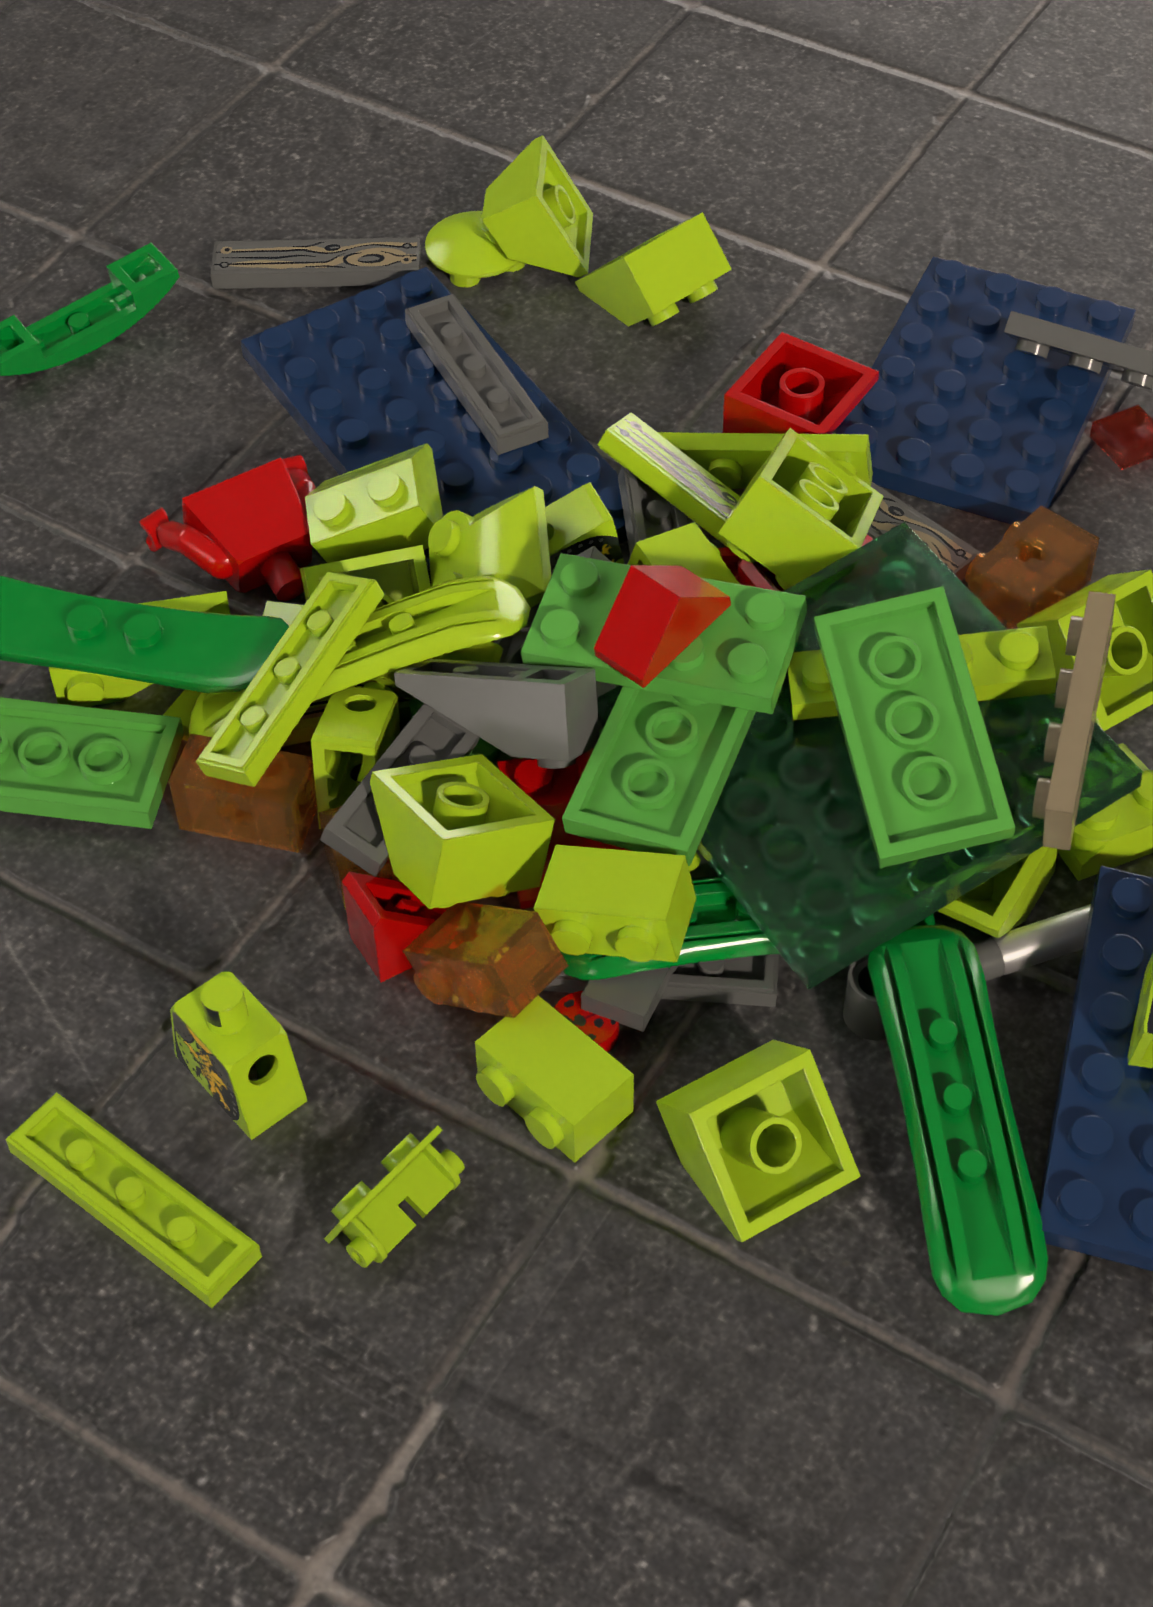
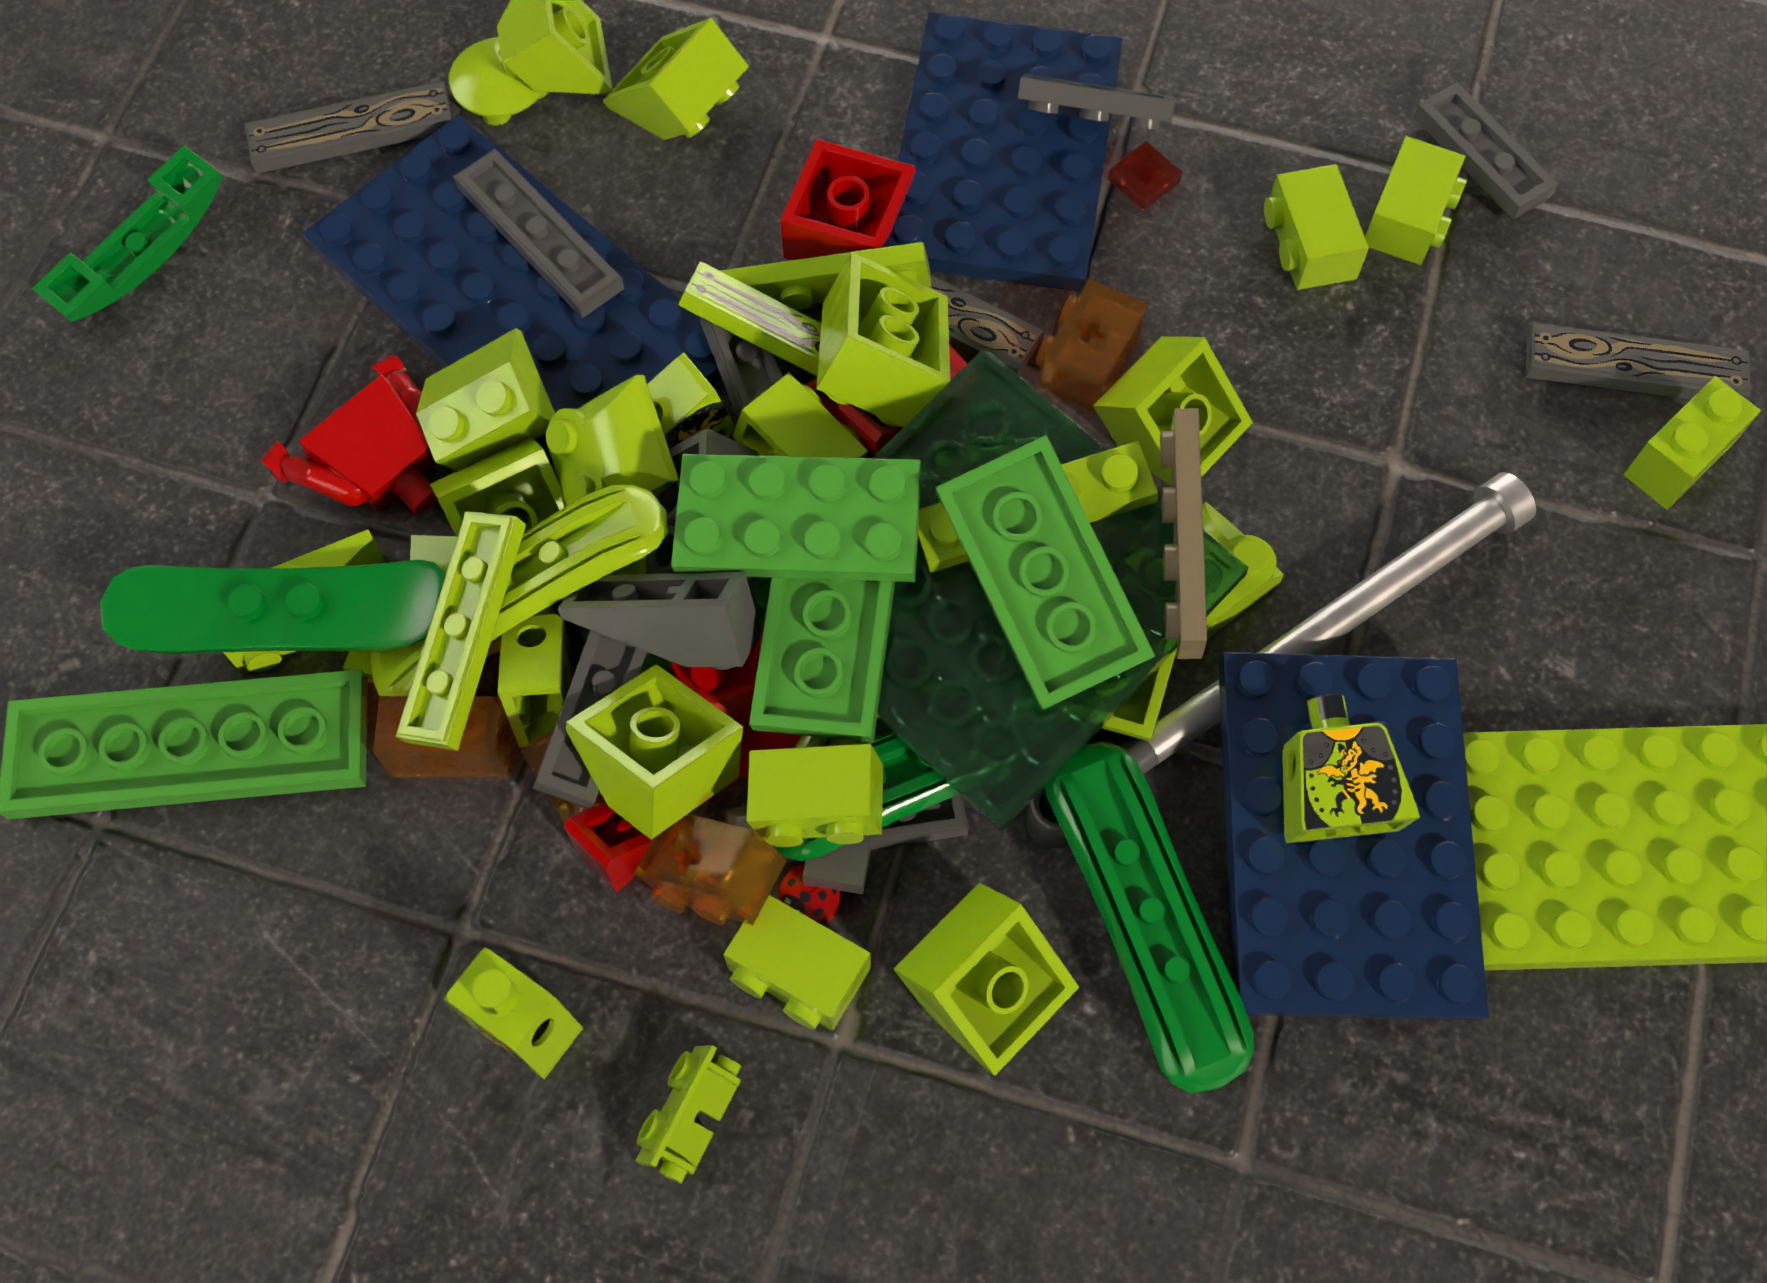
camera: 15 degrees left, 15 degrees up
(134, 1199) = (455, 1168): lime tile -> none
(656, 619) = (794, 518): red slope -> none

